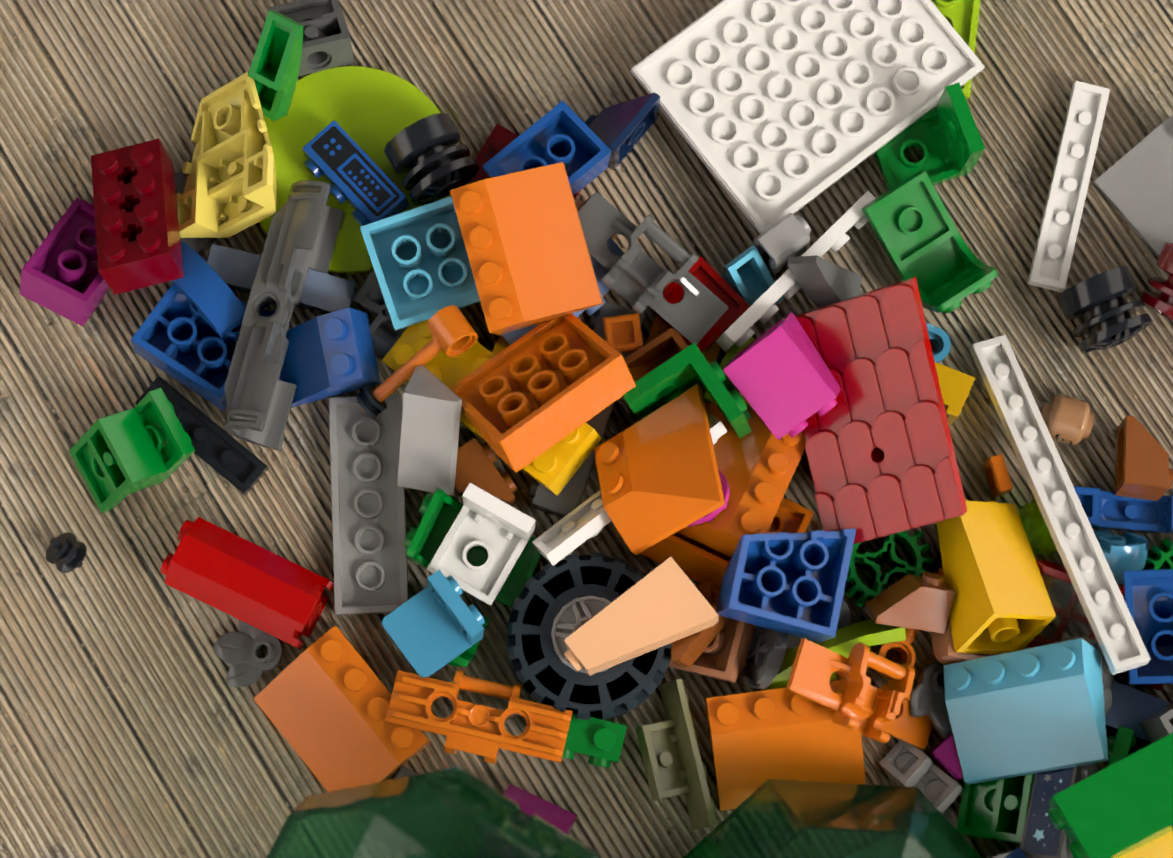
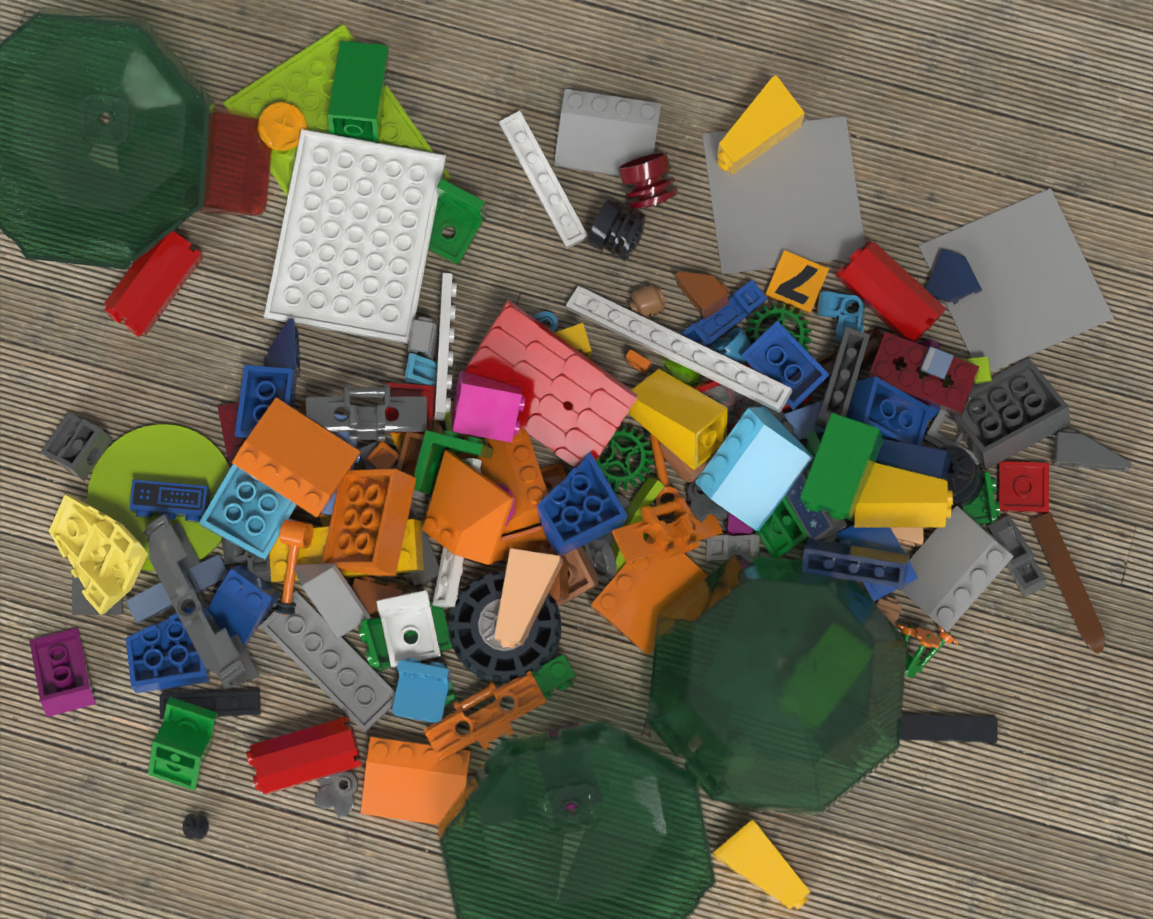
camera: 40 degrees left, 0 degrees up
(136, 217) = (74, 621): dark red brick -> none
(209, 293) = (136, 626): blue slope -> none
(277, 64) = (77, 476): green slope -> none
(431, 159) = (199, 454): black wheel -> none
(674, 757) = (601, 649): olive bracket -> none
(824, 280) = (463, 339): dark grey slope -> none
(913, 603) = (652, 464): slope -> none
(927, 244) = (498, 275): green bracket -> none

